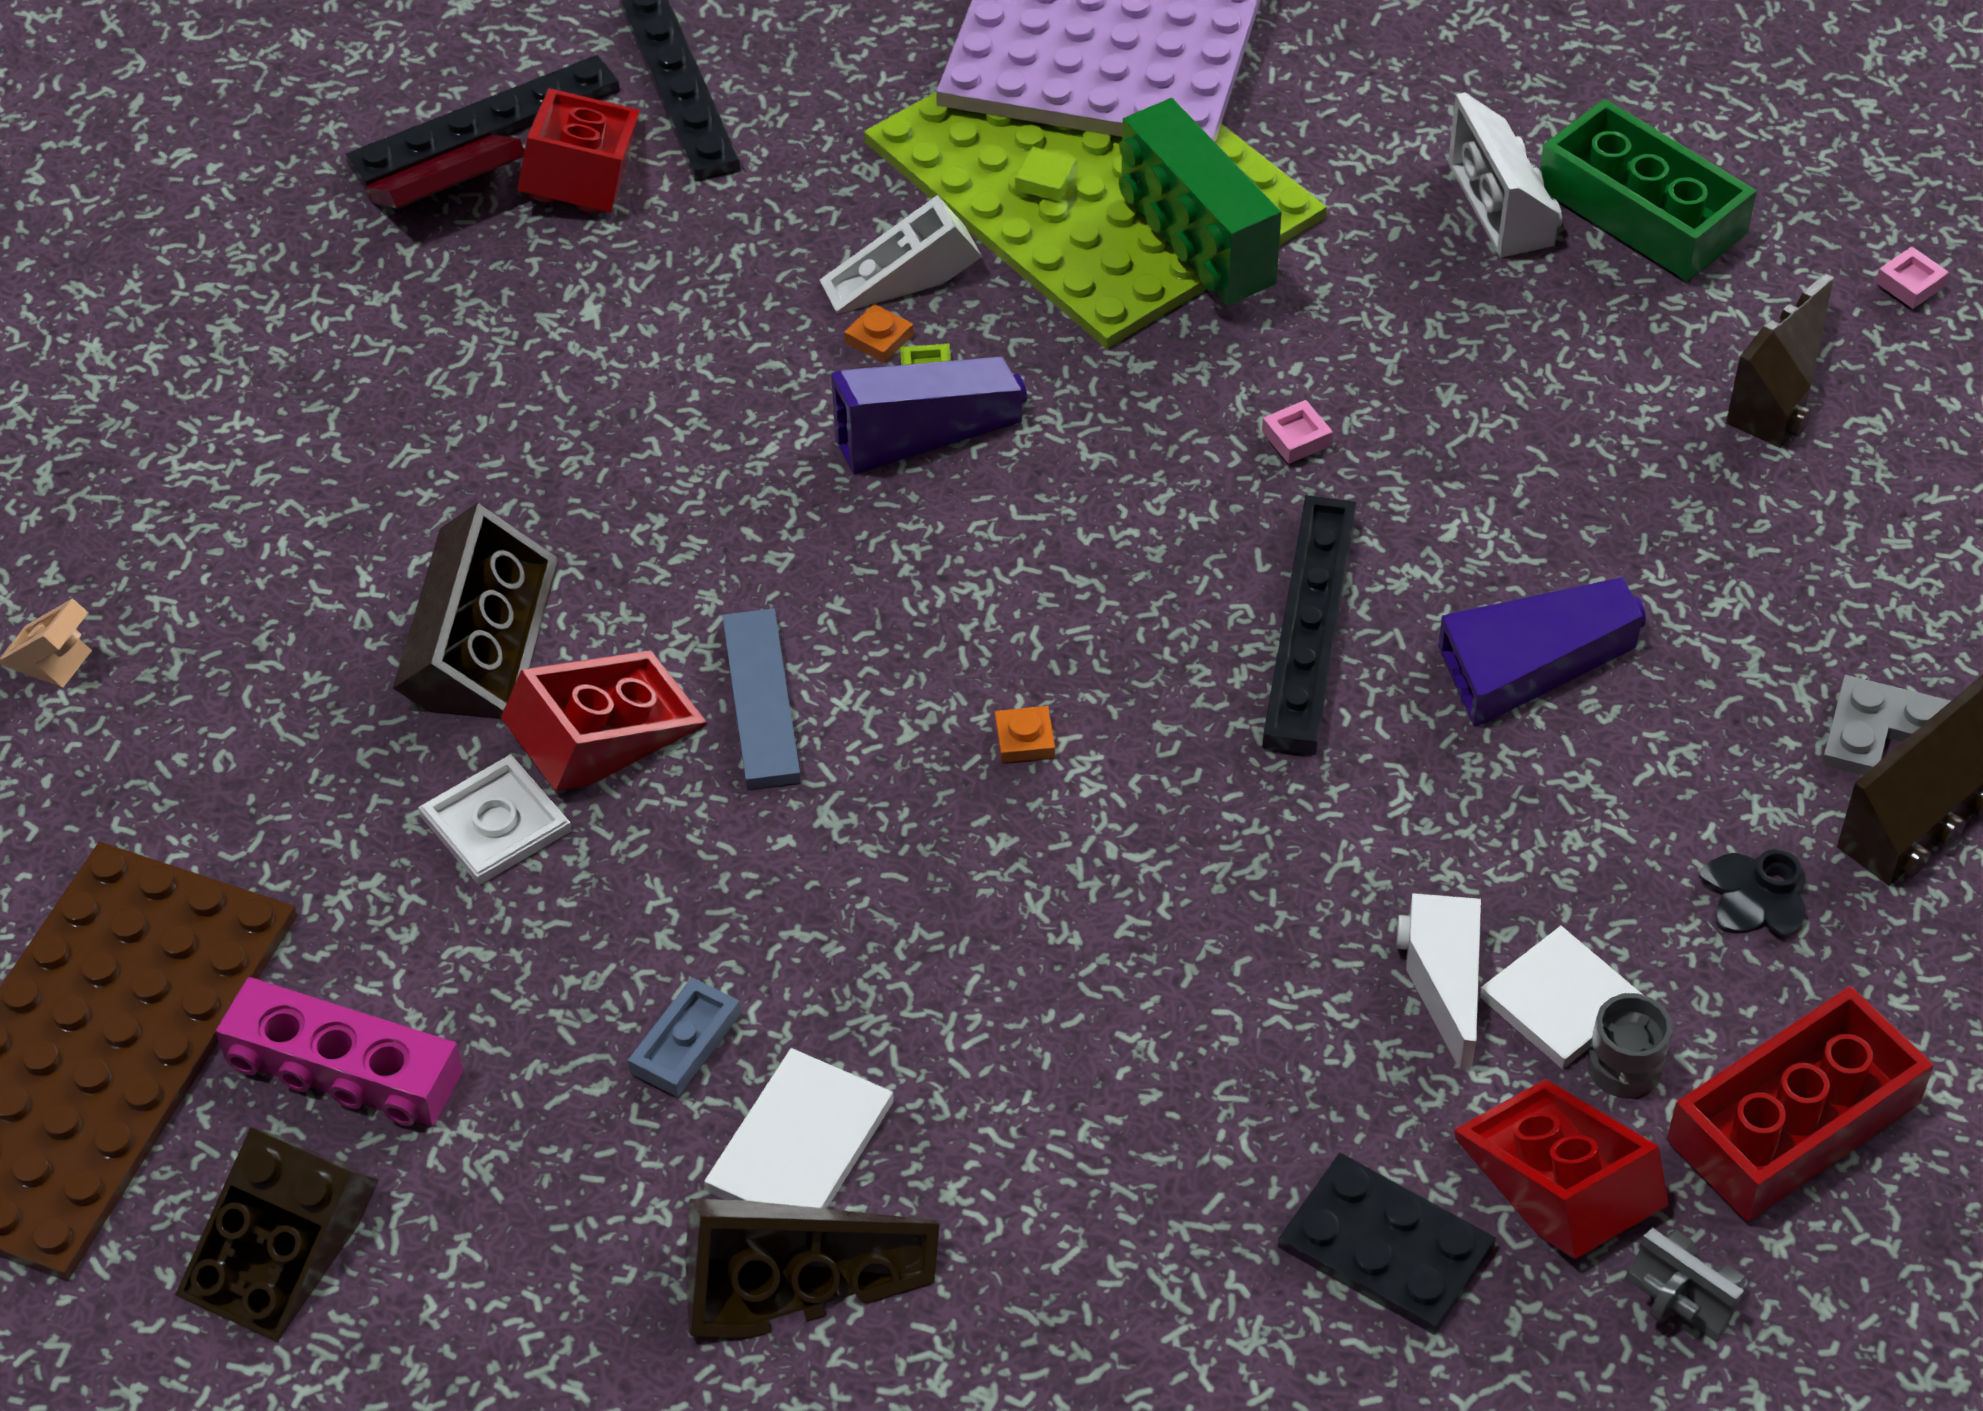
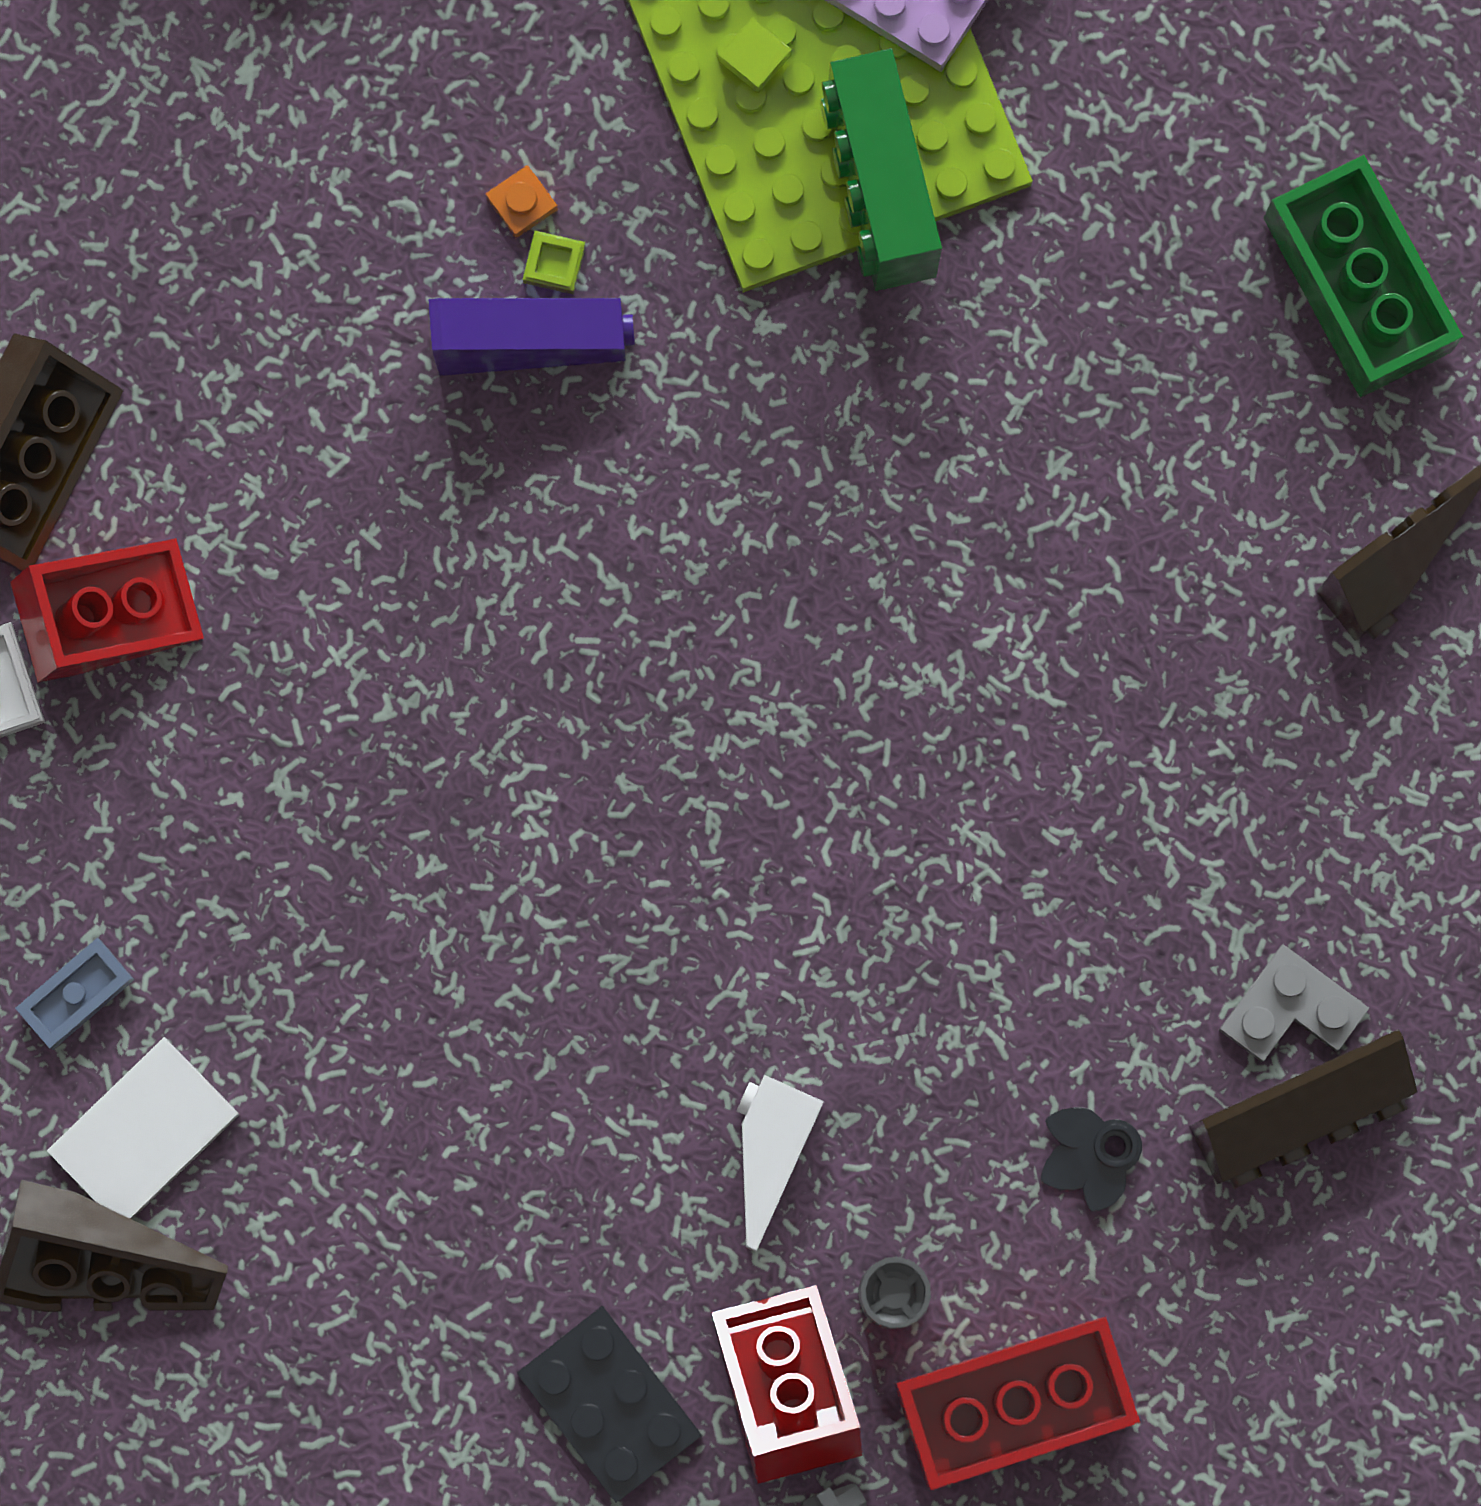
camera: 15 degrees right, 30 degrees up
(761, 699) = (261, 628): sand blue tile -> none
(907, 258) = (573, 120): white slope -> none
(1024, 734) = (491, 753): orange plate -> none
(1297, 431) = (884, 473): bright pink plate -> none
(1309, 626) = (804, 714): black plate -> none
(1501, 180) = (1223, 214): white slope -> none
(1536, 643) = (1001, 815): dark purple slope -> none
(1555, 995) = (865, 1206): white tile -> none

